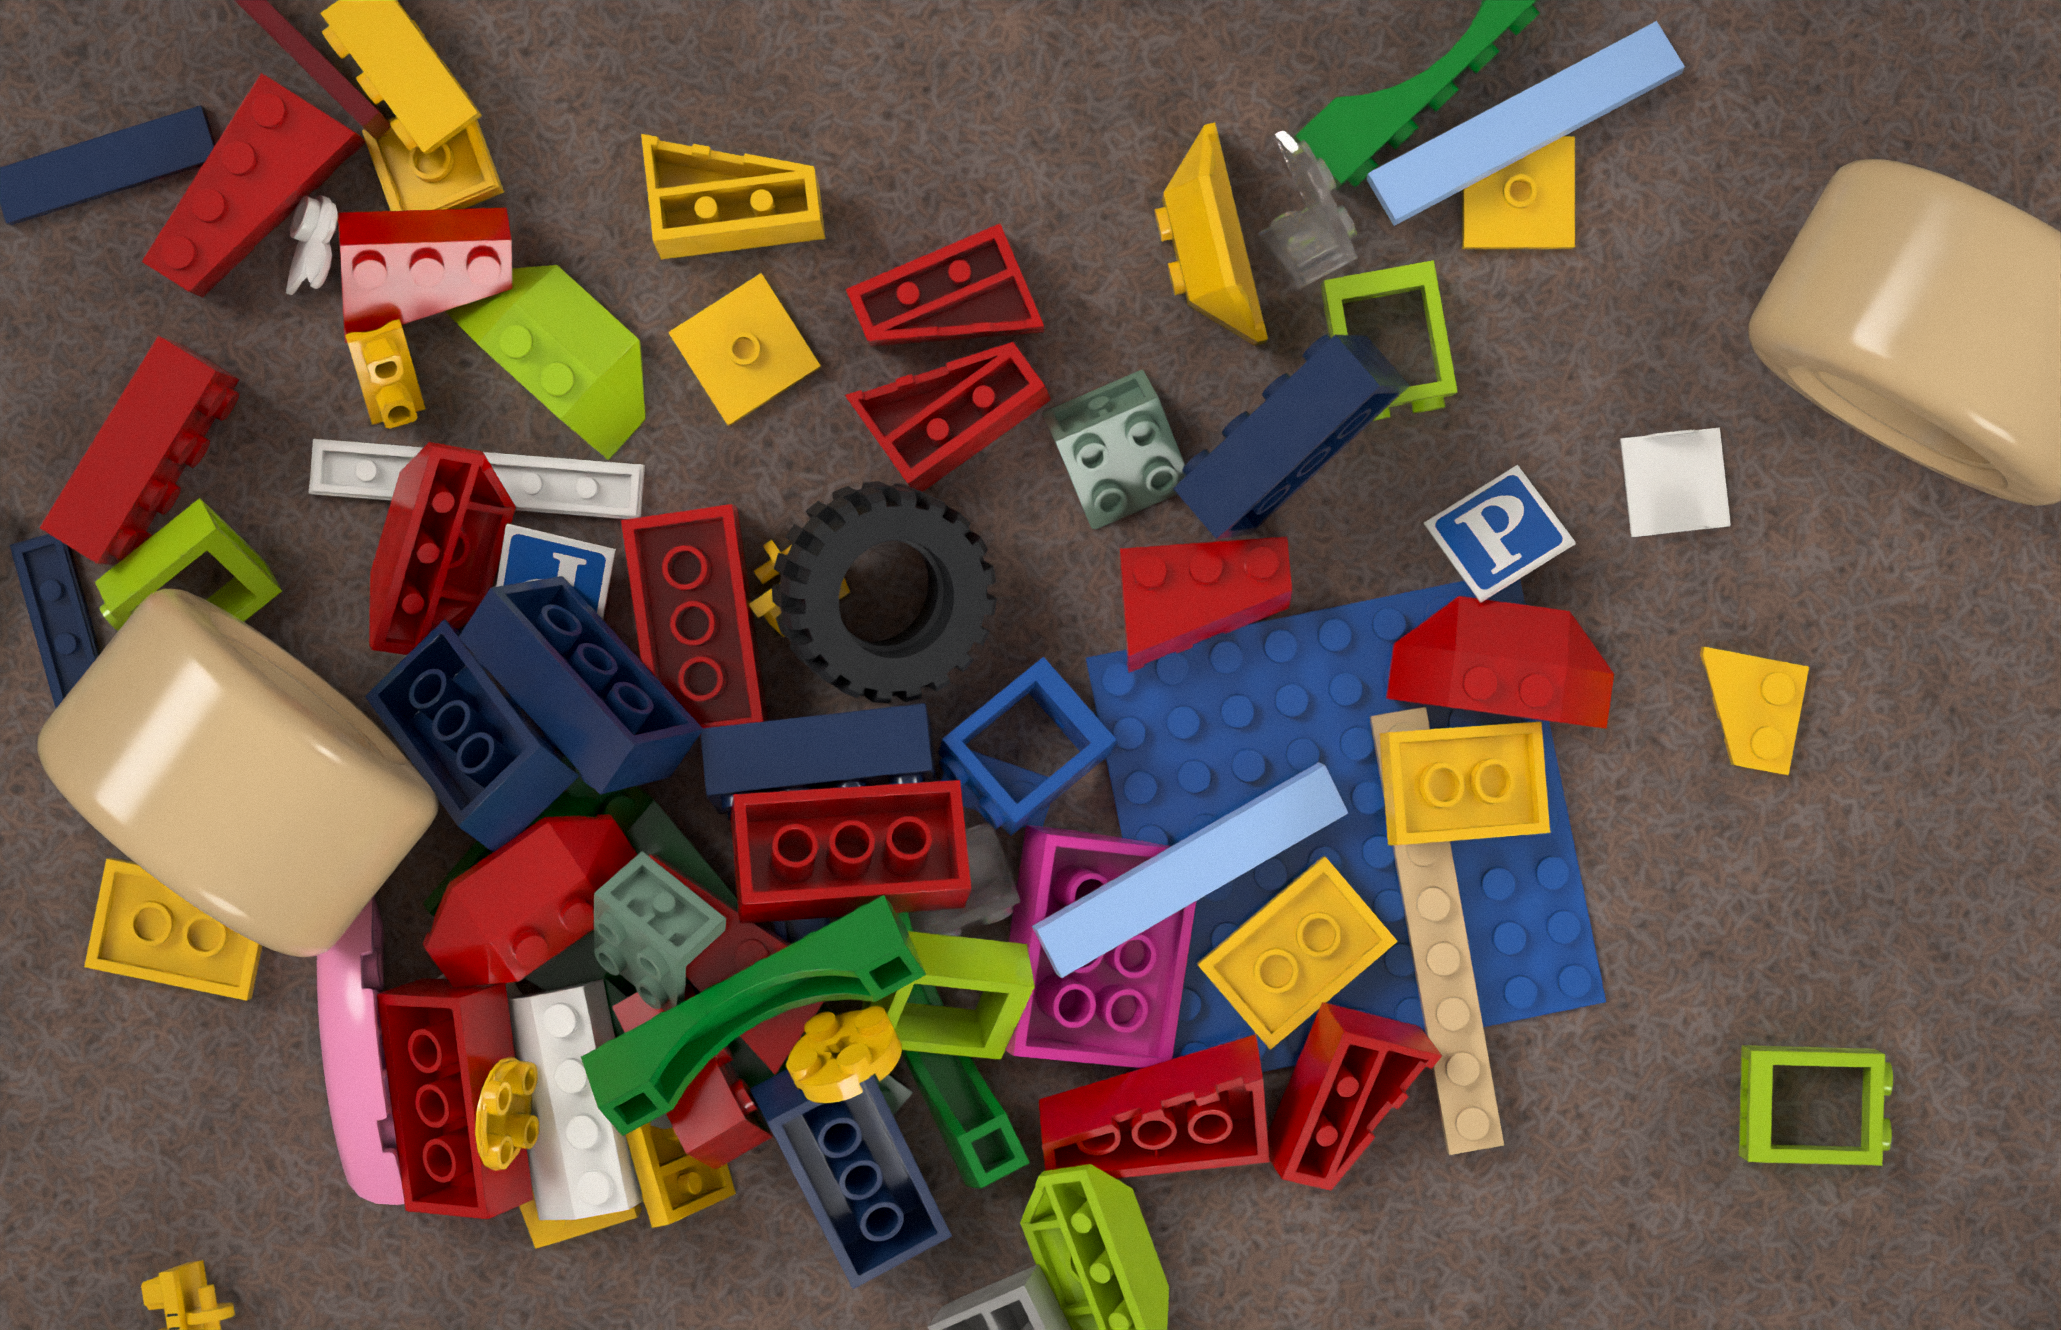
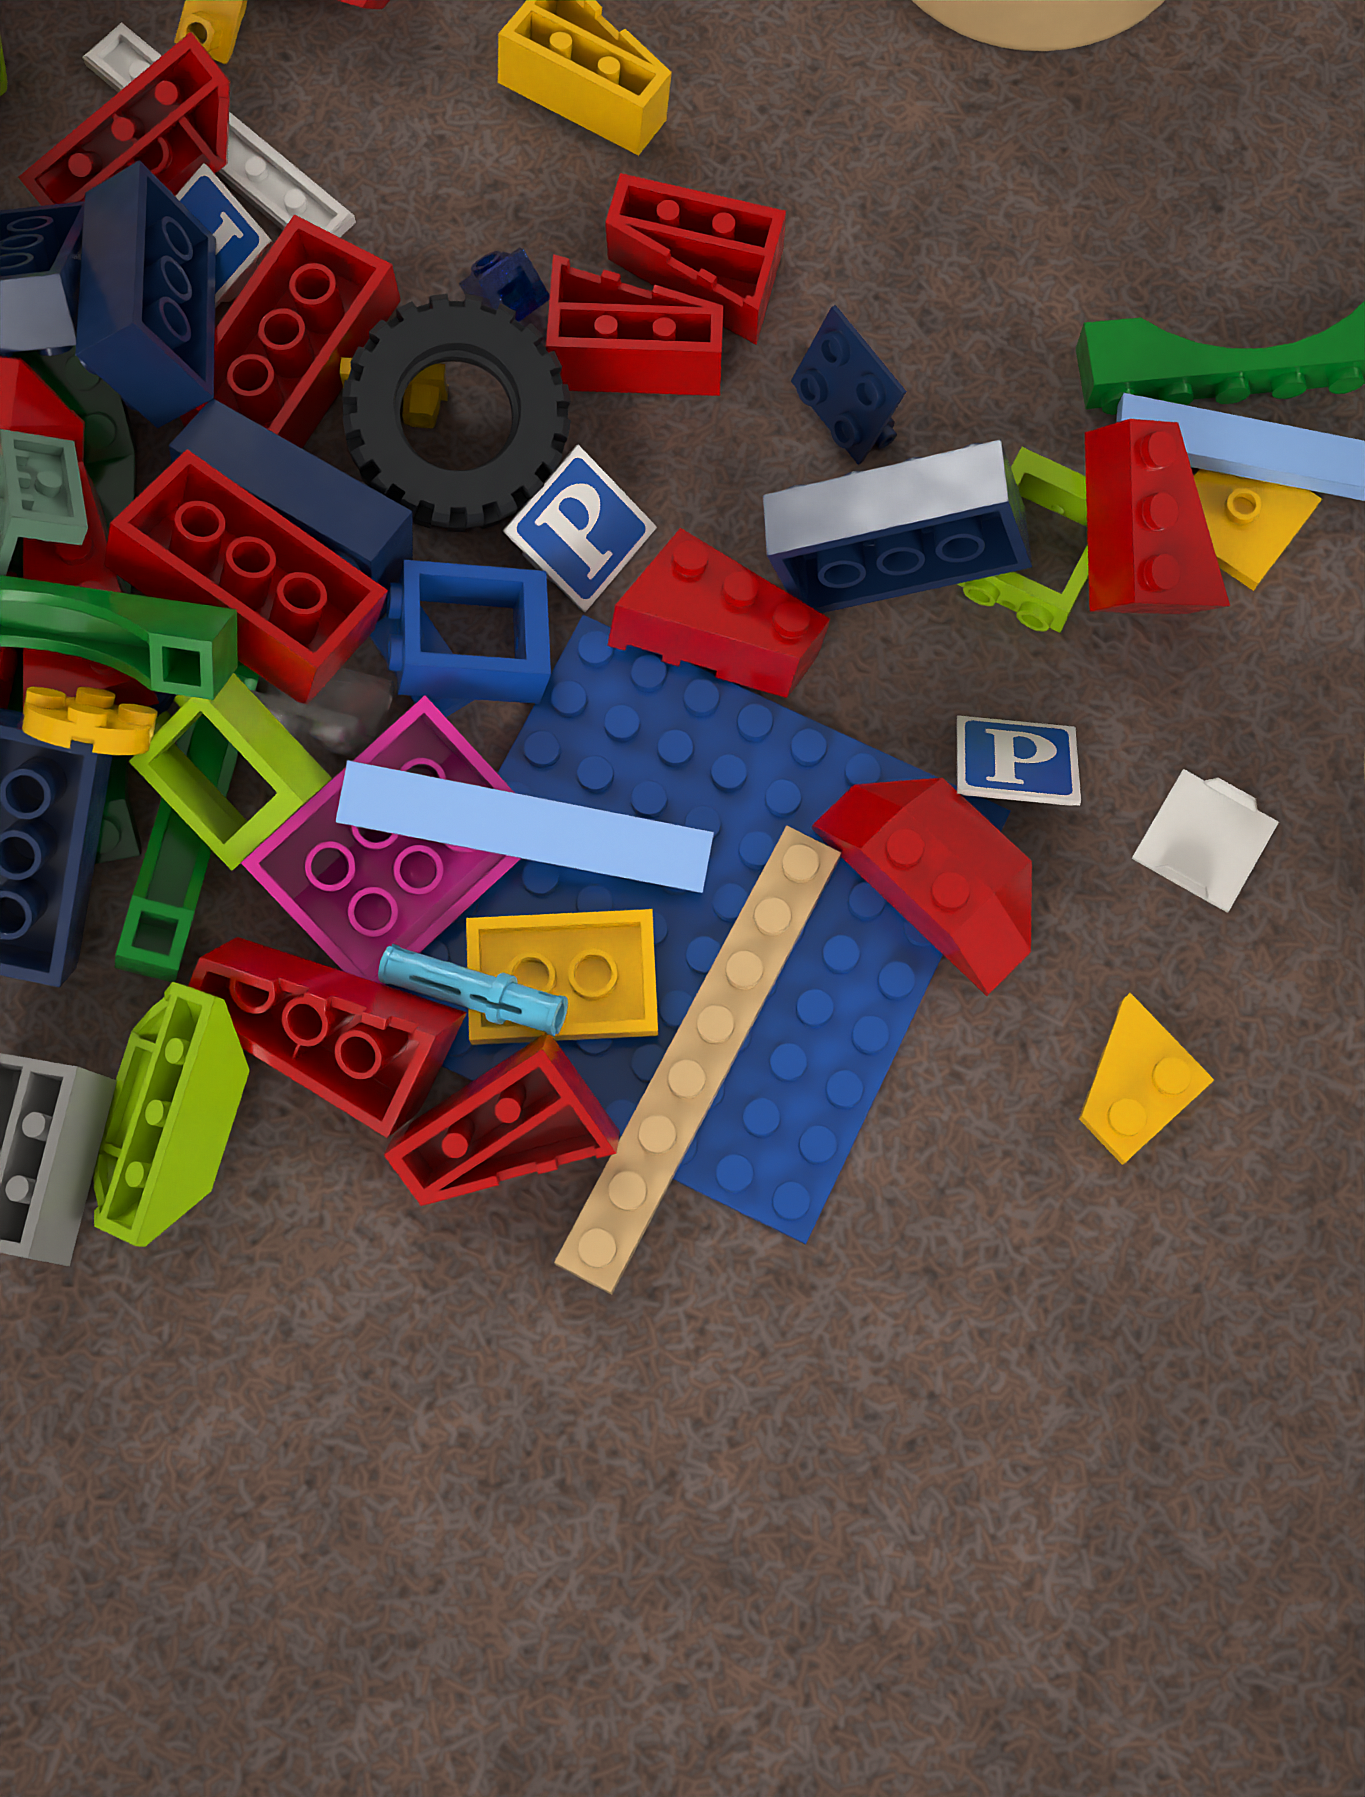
camera: 35 degrees right, 15 degrees down
(563, 353) = (363, 95): lime wedge -> none
(744, 349) = (506, 192): yellow plate -> none
(807, 440) = (508, 281): none -> clear blue brick
(1037, 597) = (580, 528): none -> piece
(1117, 448) = (732, 464): sand green bracket -> none
(1153, 330) = (849, 387): none -> dark blue hinge
(1209, 241) = (951, 355): yellow wedge -> none
(1262, 1012) = (497, 997): none -> medium azure pin
(1317, 237) = (1028, 404): clear bracket -> none
(1464, 783) = (824, 933): yellow plate -> none
(1470, 286) = (1147, 523): none -> red wedge
(1757, 1105) = (1002, 1512): lime window -> none

